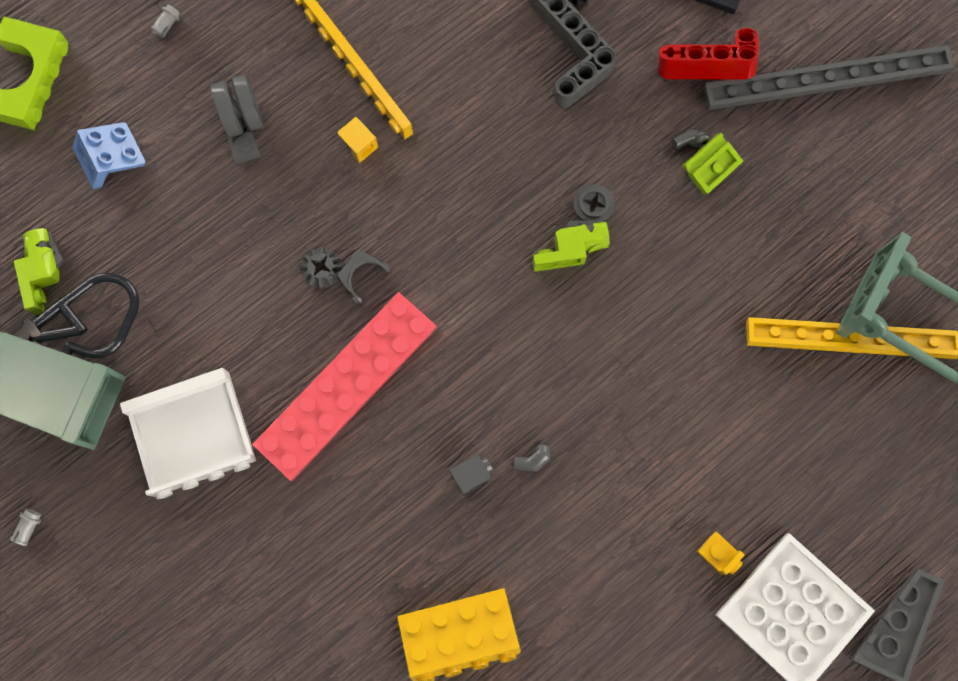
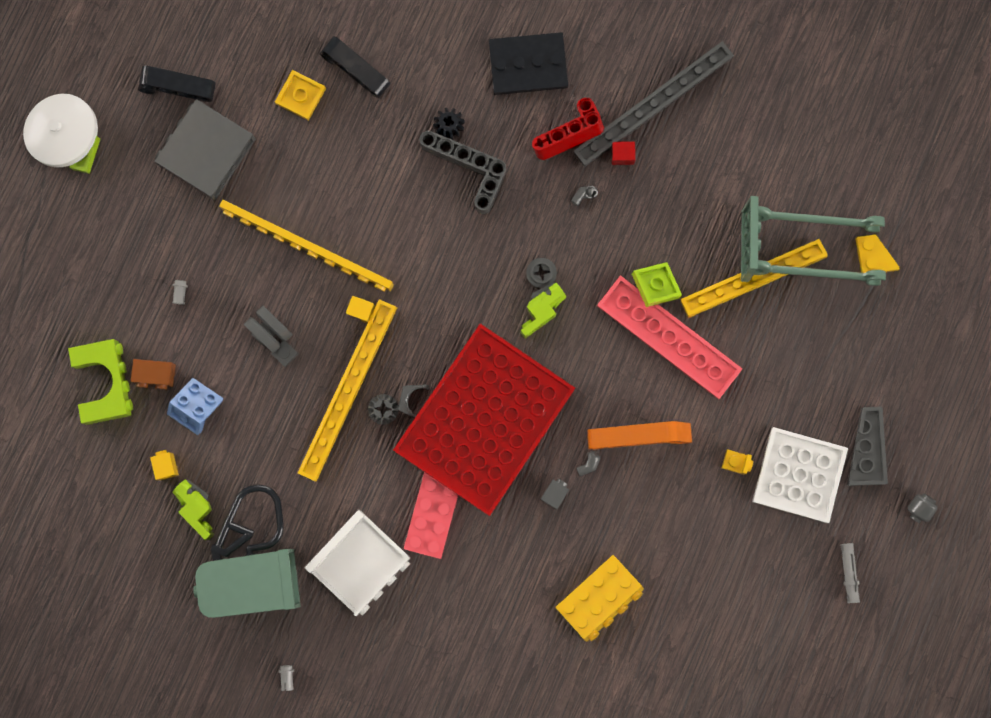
camera: 25 degrees left, 5 degrees up
(32, 202) = (164, 465): none -> yellow brick
(82, 93) = (153, 373): none -> dark orange brick
(290, 224) = (347, 390): none -> yellow plate
(432, 339) = (484, 419): none -> red plate
(617, 454) = (641, 434): none -> orange beam
(712, 163) = (606, 205): lime plate -> none
(712, 358) = (670, 338): none -> coral plate
(728, 284) = (656, 284): none -> lime plate
(764, 114) = (623, 153): none -> red panel

